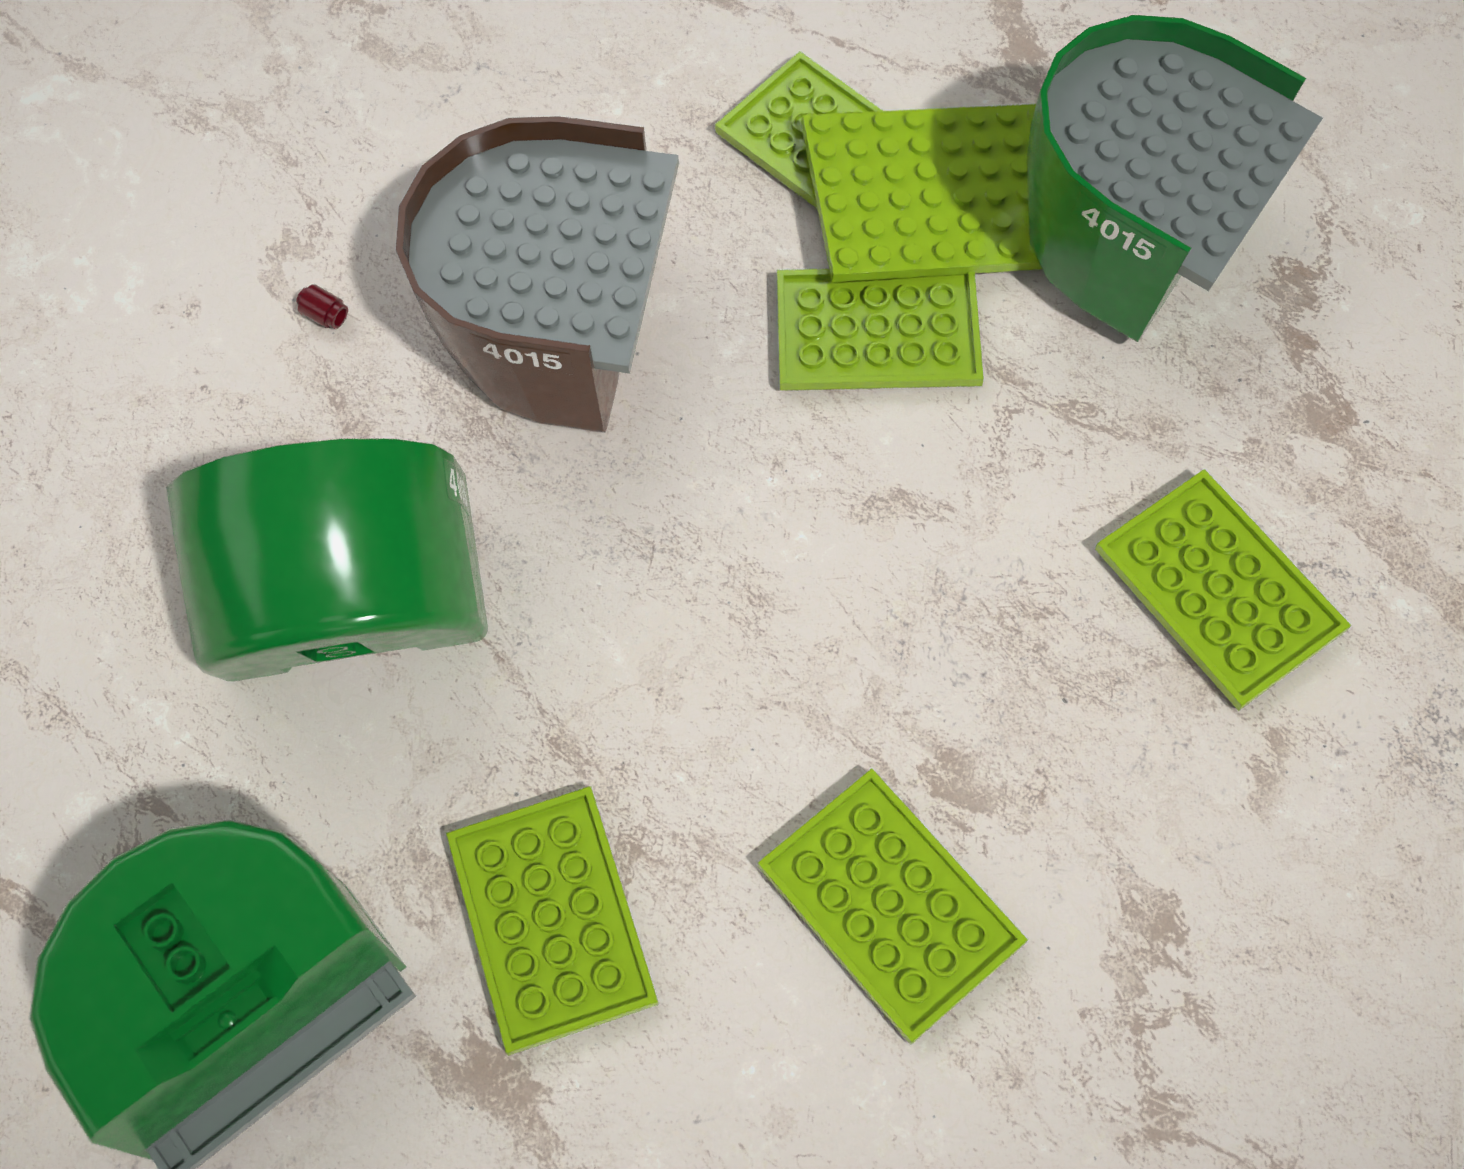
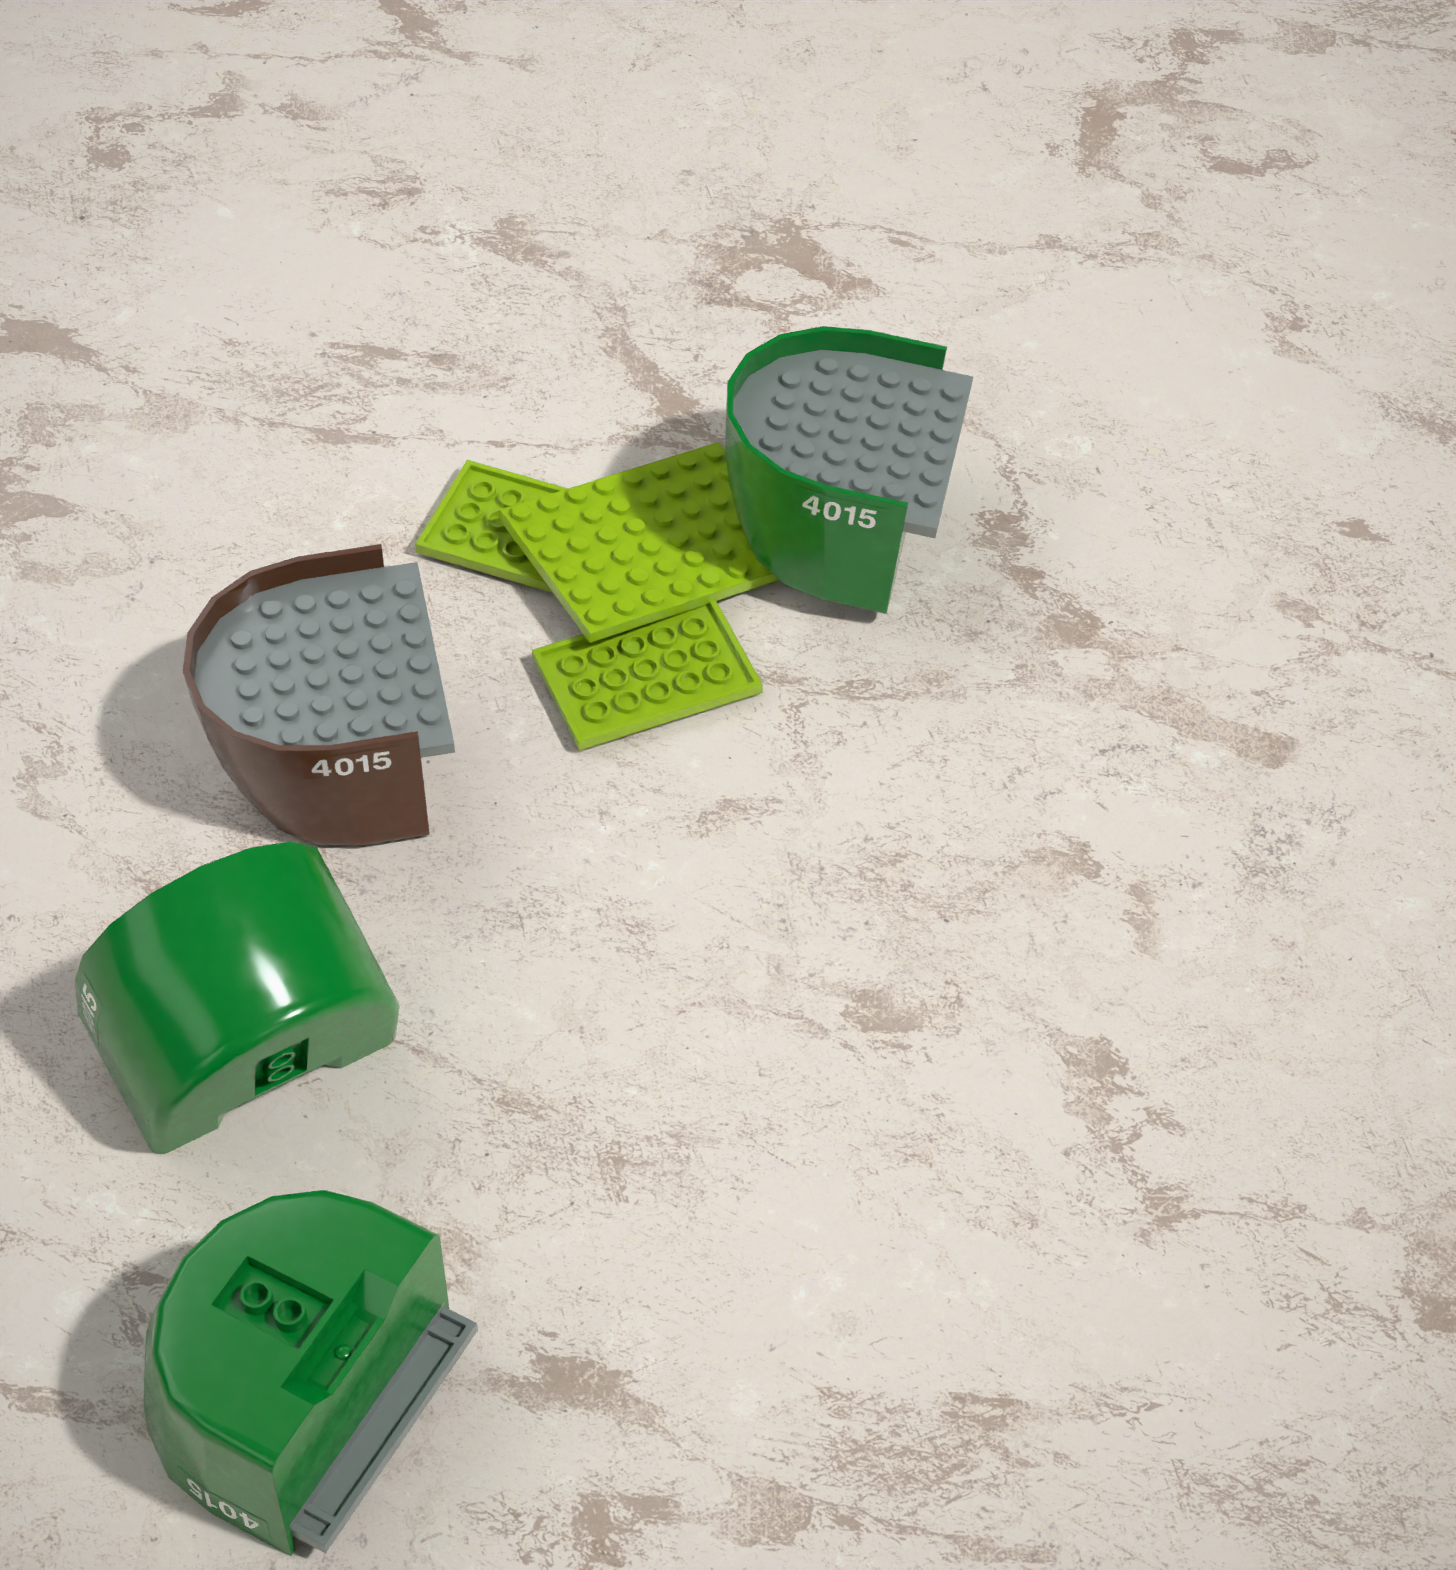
camera: 25 degrees left, 15 degrees down
(322, 306) = (101, 809): dark red brick -> none
(550, 920) = (569, 1235): lime plate -> none
(892, 905) = (866, 1121): lime plate -> none
(1222, 589) = (1042, 787): lime plate -> none

